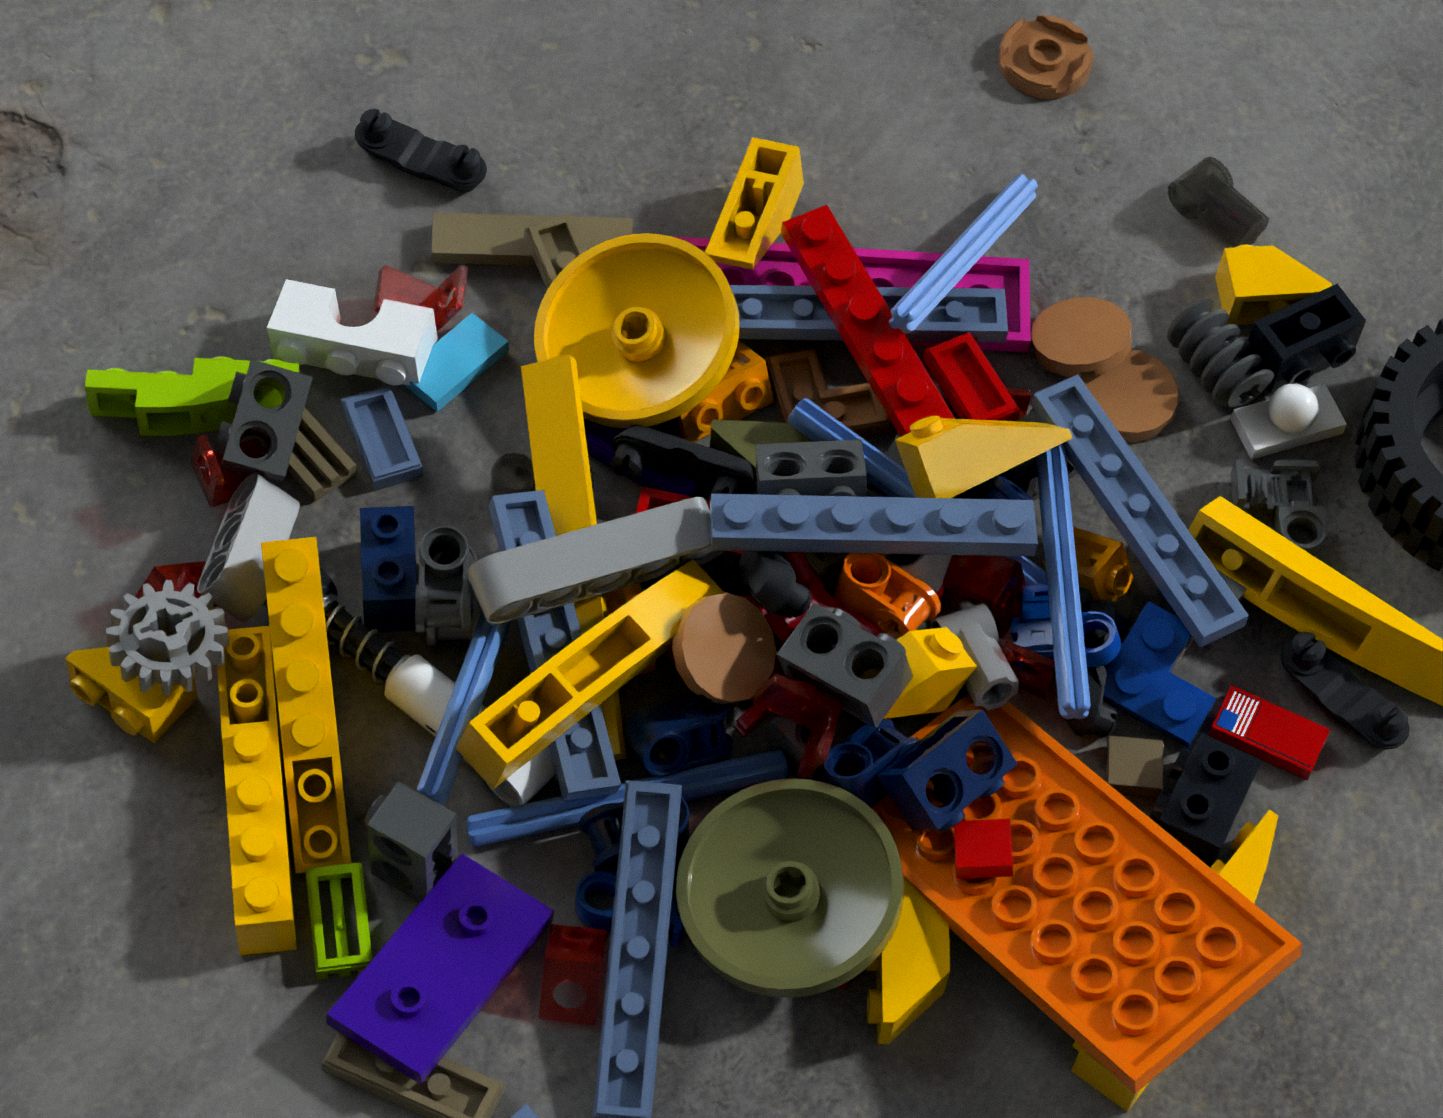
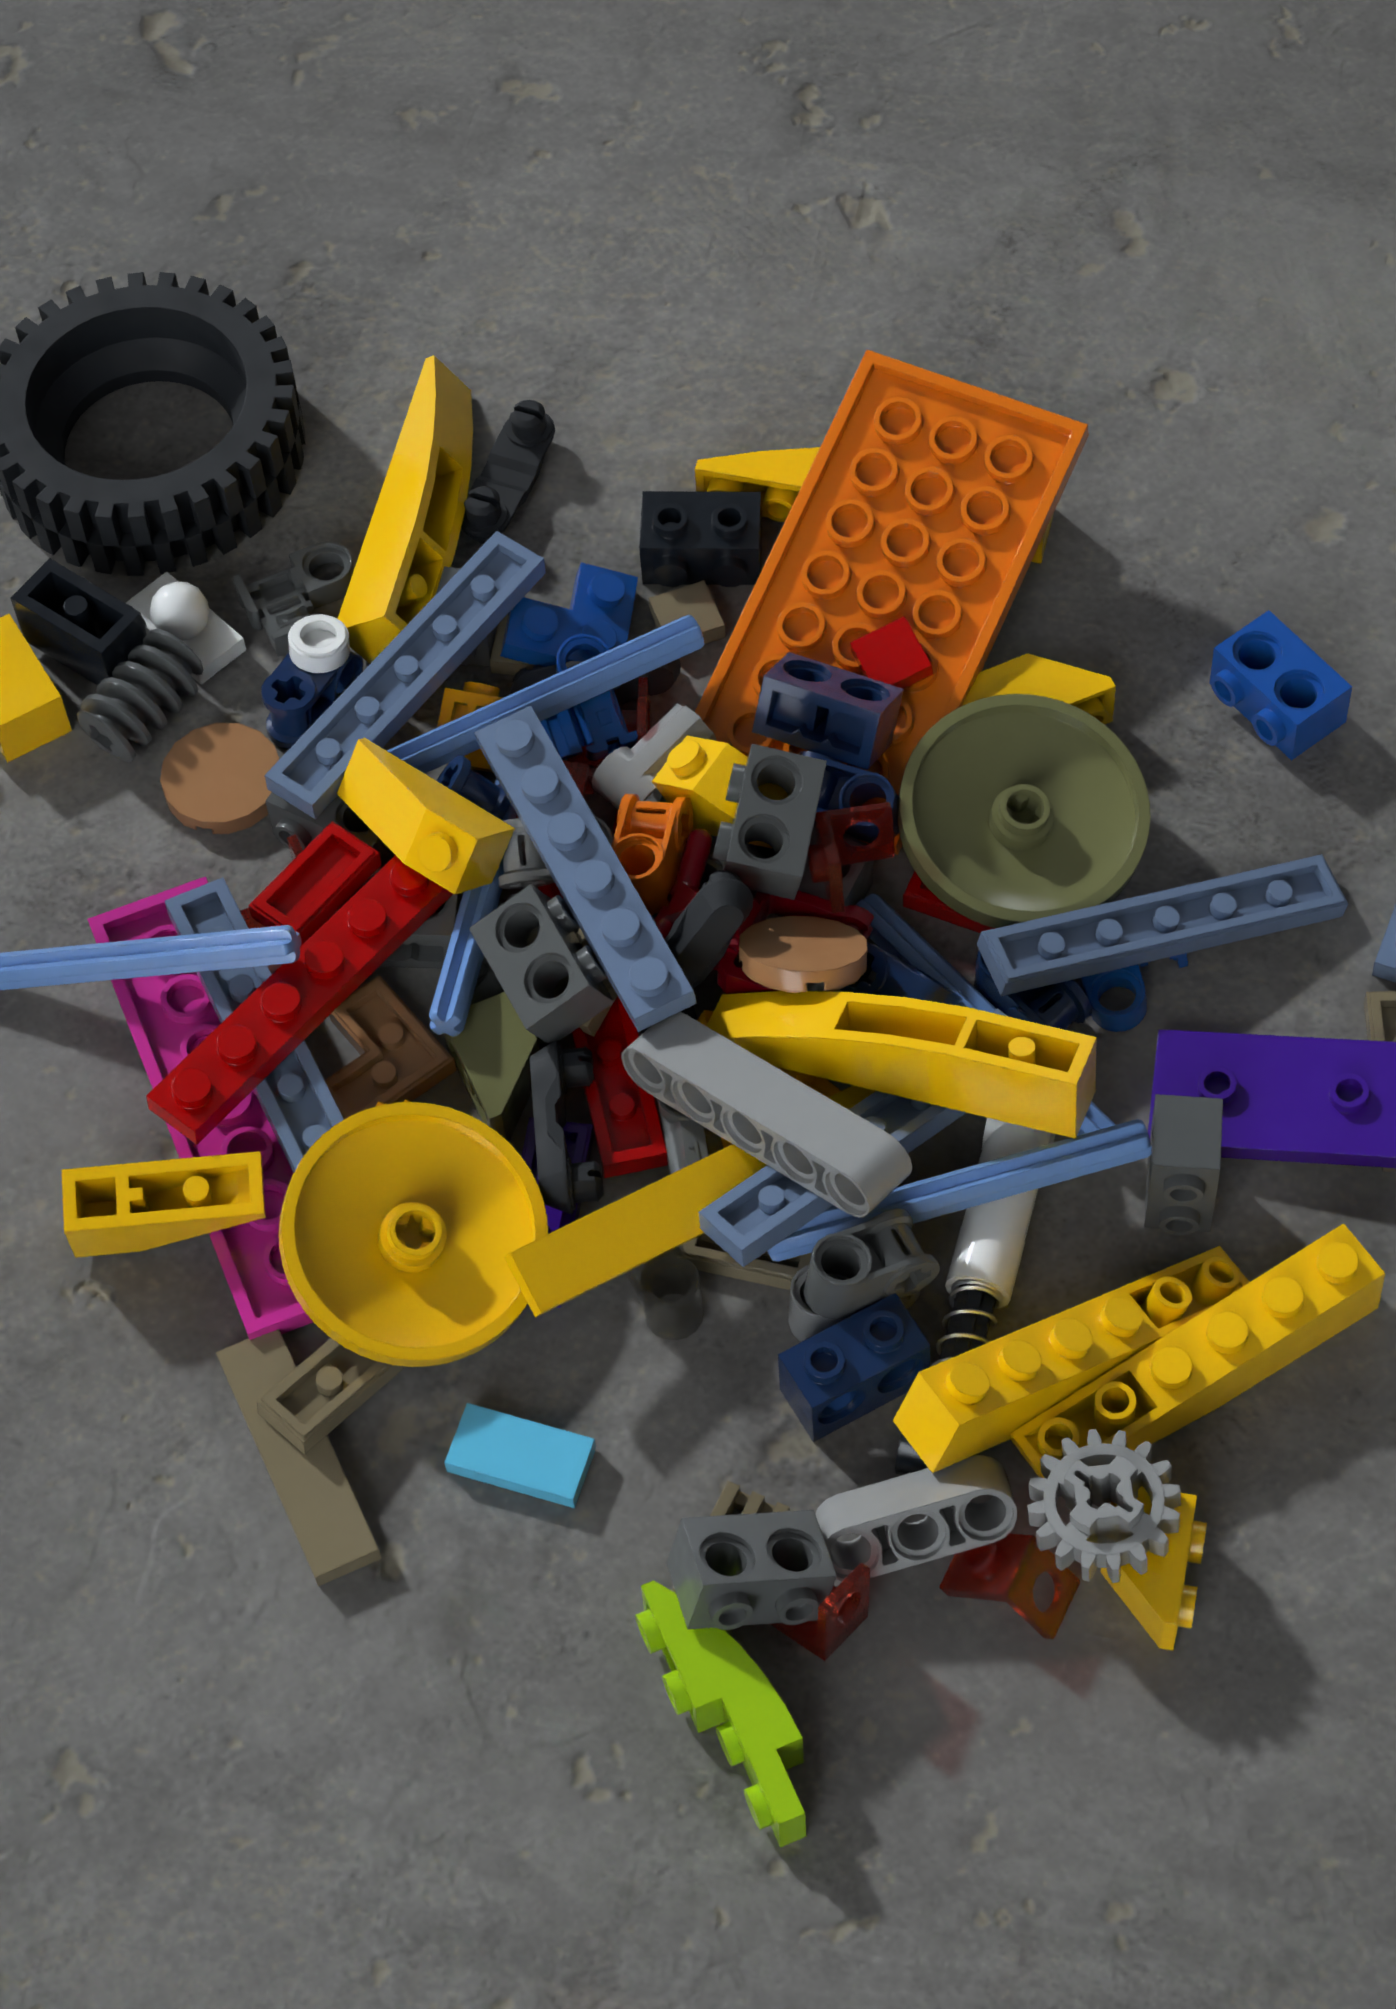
camera: 105 degrees left, 0 degrees up
(344, 963) = (1244, 1256): lime tile -> none
(381, 438) = (668, 1483): sand blue tile -> none
(387, 348) = (564, 1626): white arch -> none
(407, 289) = (459, 1526): clear red bracket -> none
(418, 154) = (226, 1638): black piece -> none
(572, 956) = (1202, 983): clear red bracket -> none
(1081, 336) = (171, 833): medium nougat tile -> none
(1183, 472) = (301, 697): none -> dark blue piece
(1204, 472) = (319, 643): none -> white tile
(1269, 732) = (582, 521): red tile -> none

